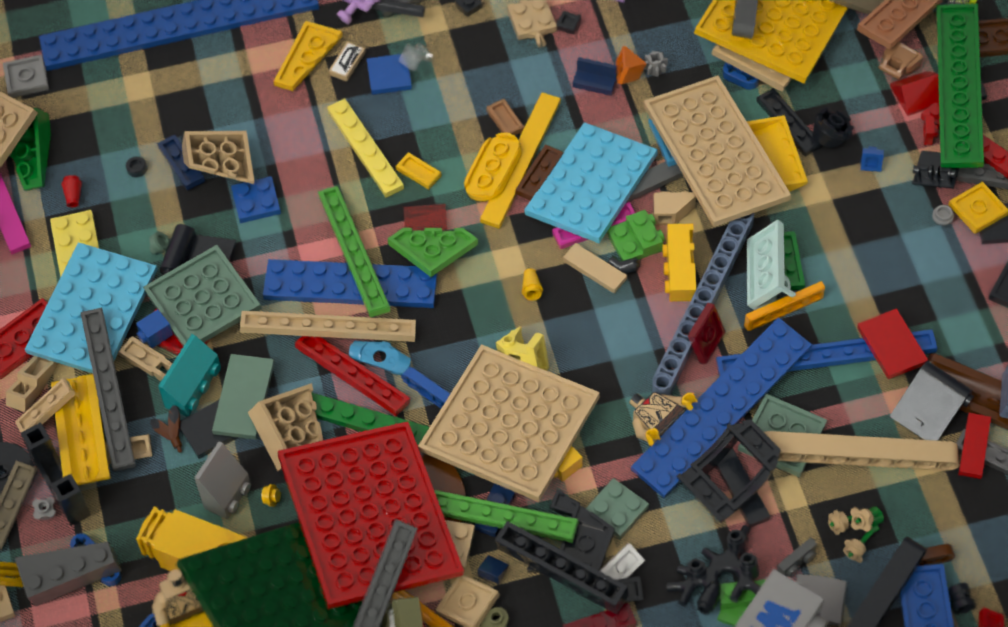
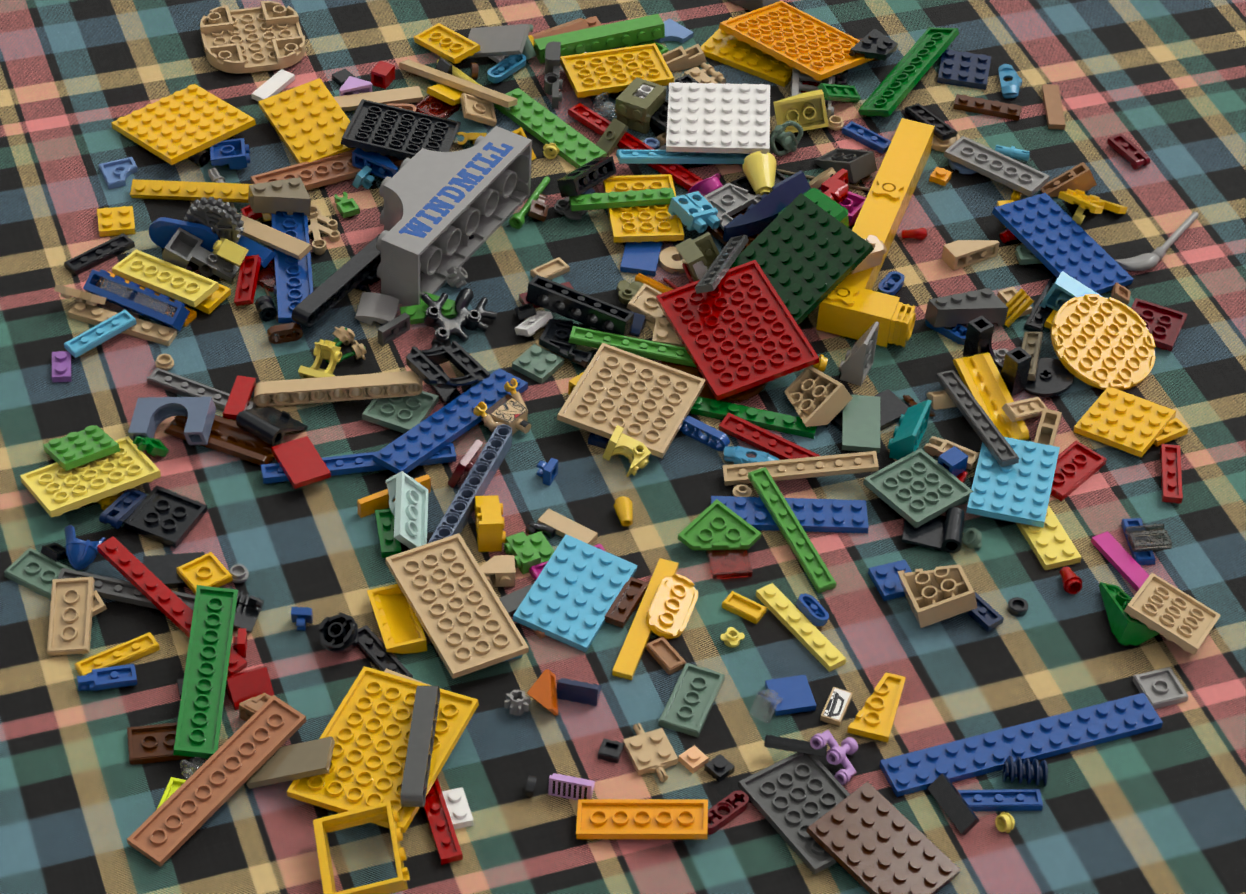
camera: 170 degrees right, 15 degrees down
(350, 160) = (812, 610): none -> blue plate
(401, 314) = (742, 491): none -> tan plate
(436, 138) = (732, 637): none -> light yellow plate
(485, 72) = (691, 700): none -> sand green tile
(492, 12) = (693, 759): none -> light nougat plate
(612, 337) = (548, 470): none -> blue tile
(881, 486) = (323, 350): none -> light yellow tile

